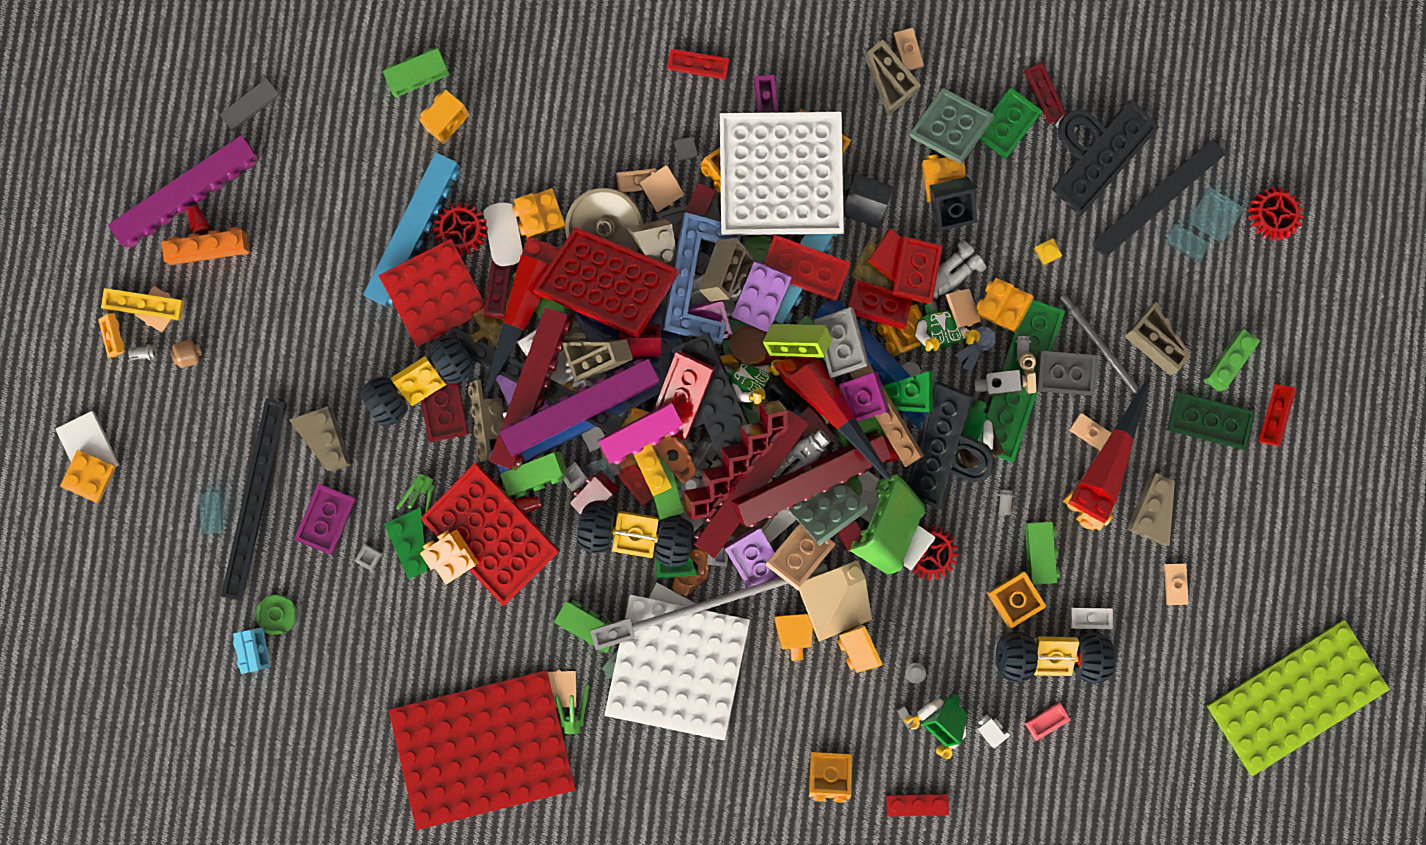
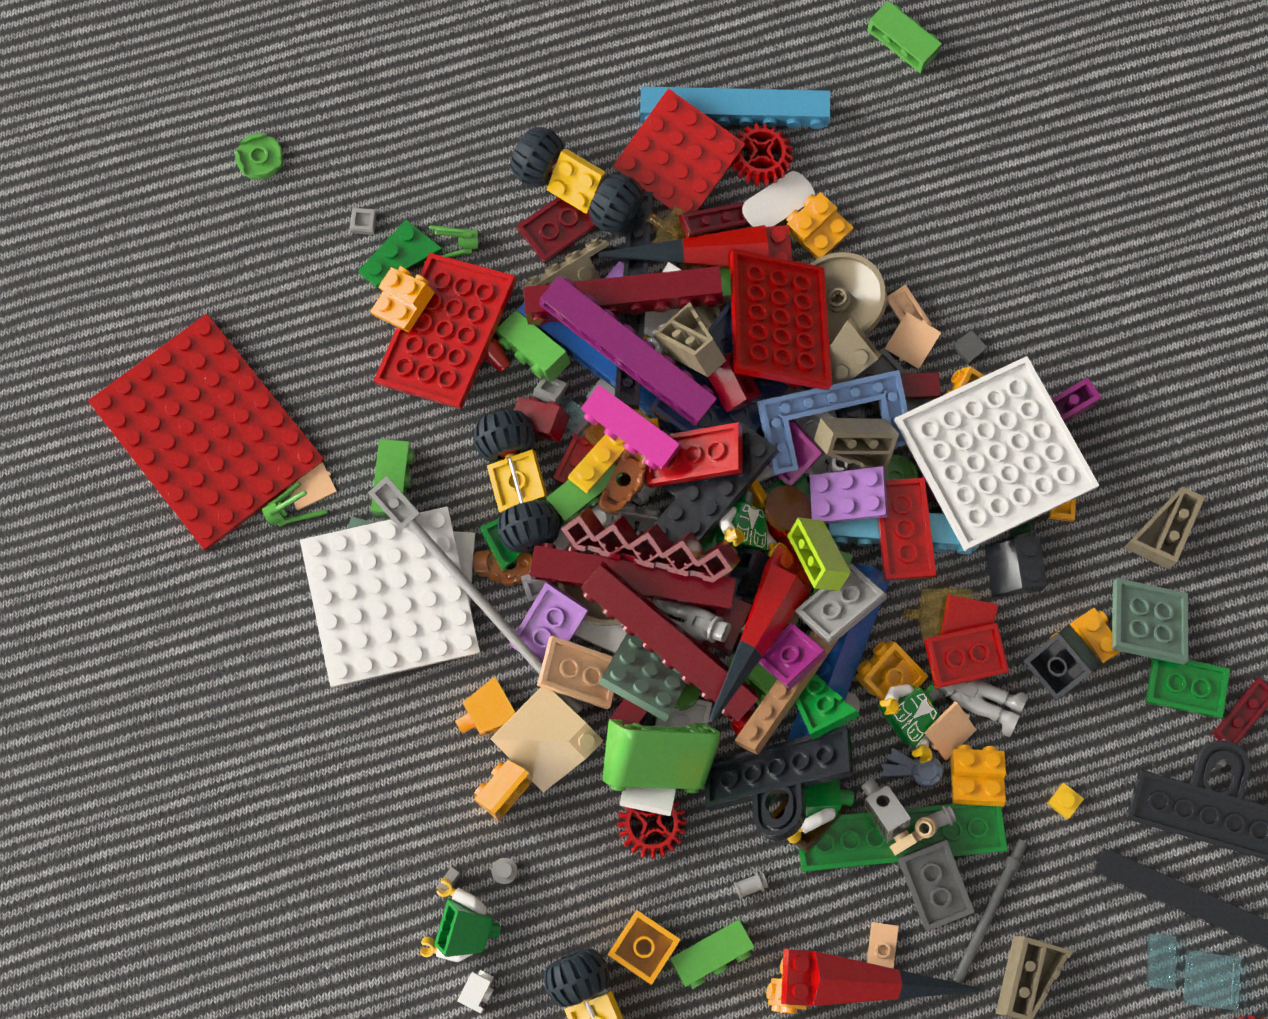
camera: 60 degrees right, 10 degrees down
(211, 513) = (337, 46): clear light blue tile -> none
(251, 650) = (209, 146): medium azure brick -> none
(253, 500) = (371, 79): black plate -> none
(323, 437) = (469, 118): dark tan wedge -> none
(325, 519) = (383, 158): magenta plate -> none
(444, 116) = (872, 82): light orange brick -> none
(698, 64) = (1069, 317): red plate -> none
(830, 776) = (340, 826): light orange plate -> none
(879, 305) = (905, 631): red tile -> none
(908, 49) = (1209, 536): light nougat plate -> none
(917, 805) = (352, 944): red plate -> none

